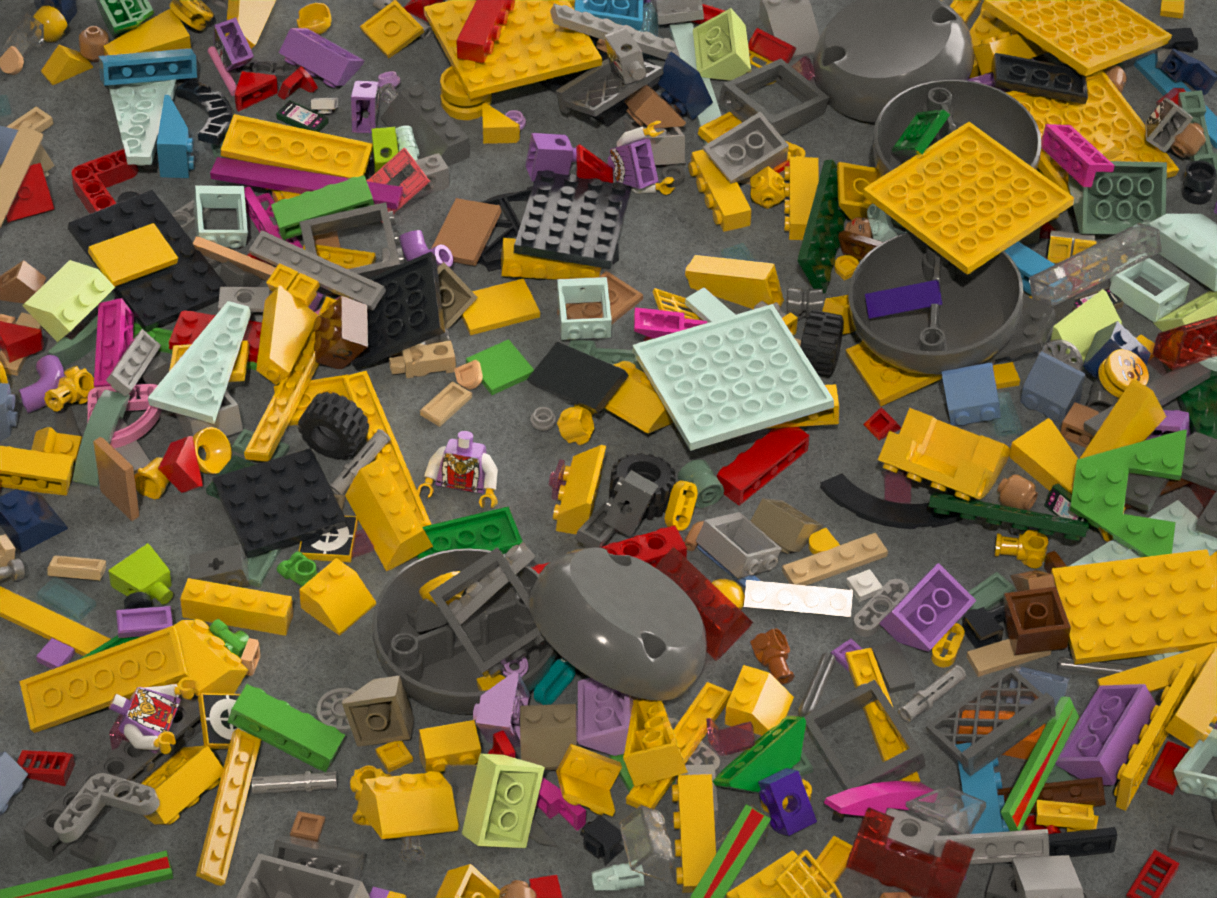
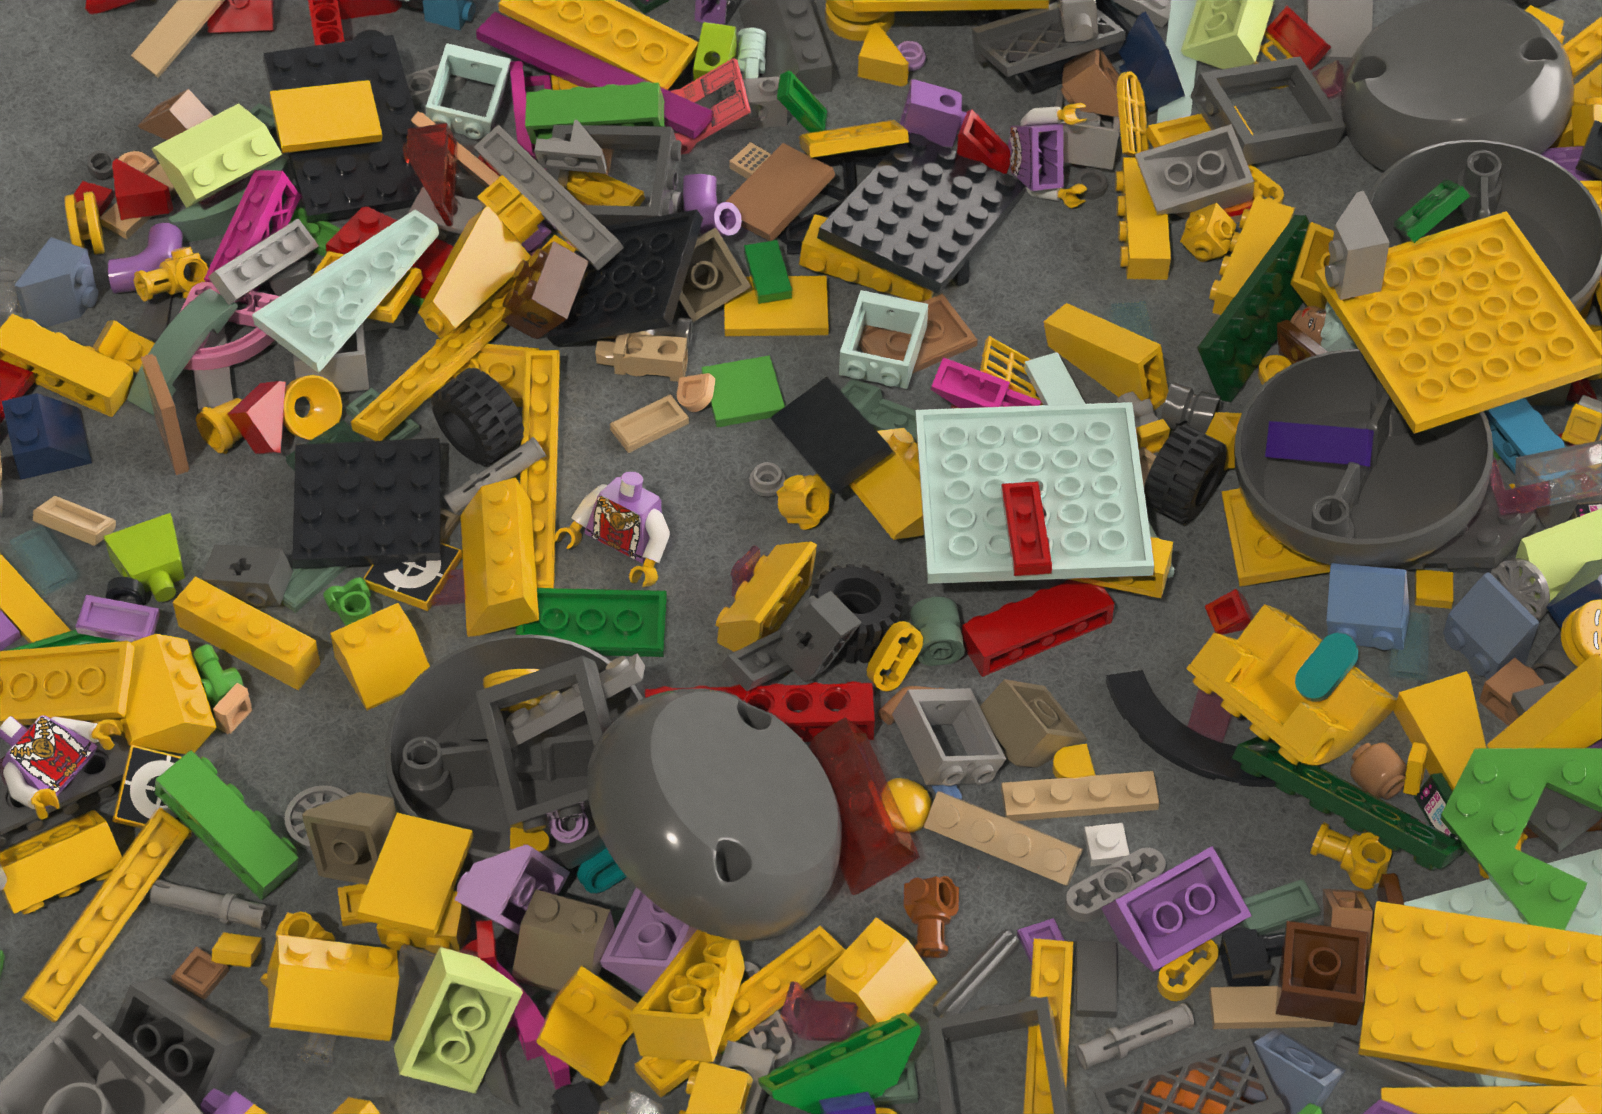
camera: 20 degrees right, 5 degrees up
(225, 270) = (433, 158): none -> clear red slope
(327, 805) = (236, 950): none -> yellow tile
(329, 236) = (575, 155): none -> light grey slope
(435, 216) = (748, 160): none -> tan tile
(438, 717) = (415, 874): none -> yellow tile
(458, 169) = (801, 103): none -> green tile
(483, 285) = (767, 271): none -> green tile
(503, 183) = (853, 138): none -> yellow tile
(687, 123) = (1125, 117): none -> yellow window
(742, 398) = (1026, 528): none -> red tile
(891, 167) = (1357, 251): none -> light grey slope
(961, 437) = (1326, 667): none -> teal tile
(1040, 484) = (1415, 768): none -> yellow tile
(1045, 300) = (1519, 499): none -> clear pink bracket

